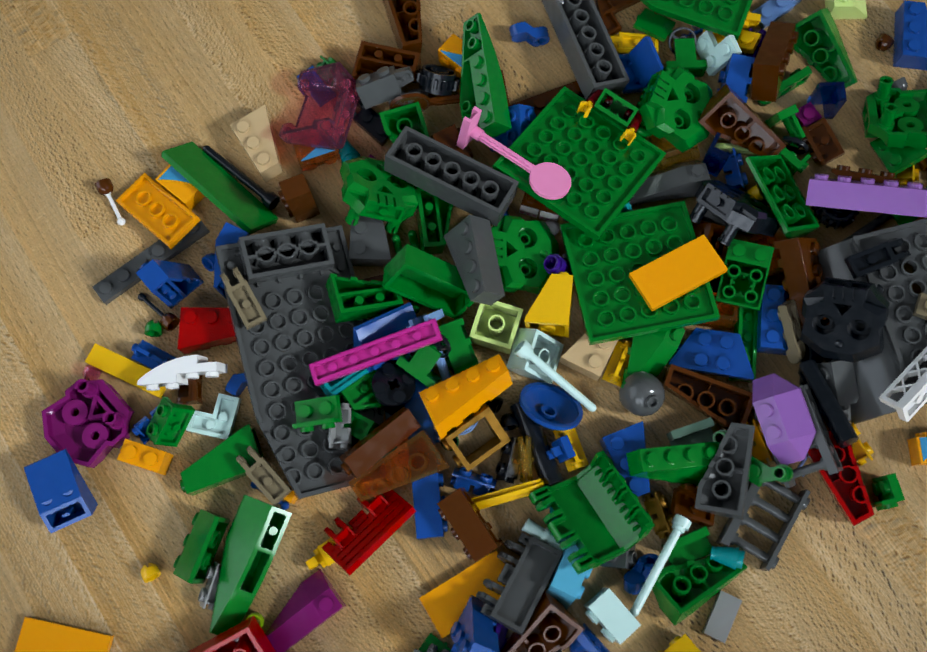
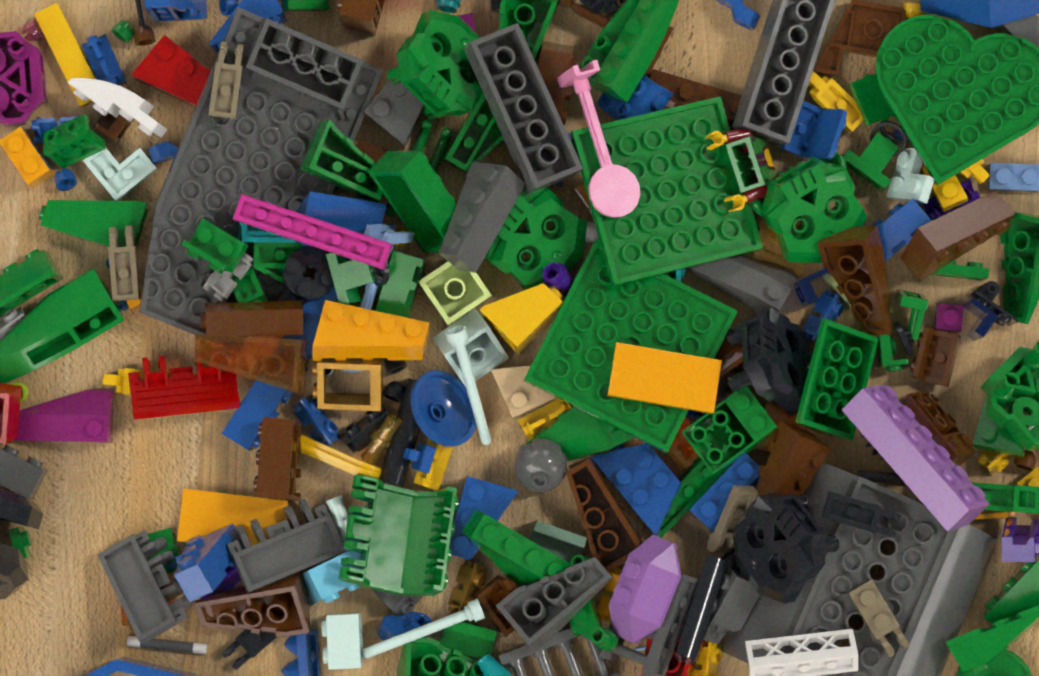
camera: 35 degrees right, 10 degrees up
(183, 457) = (61, 183): none -> blue hinge
(824, 75) = (985, 295): none -> black hinge

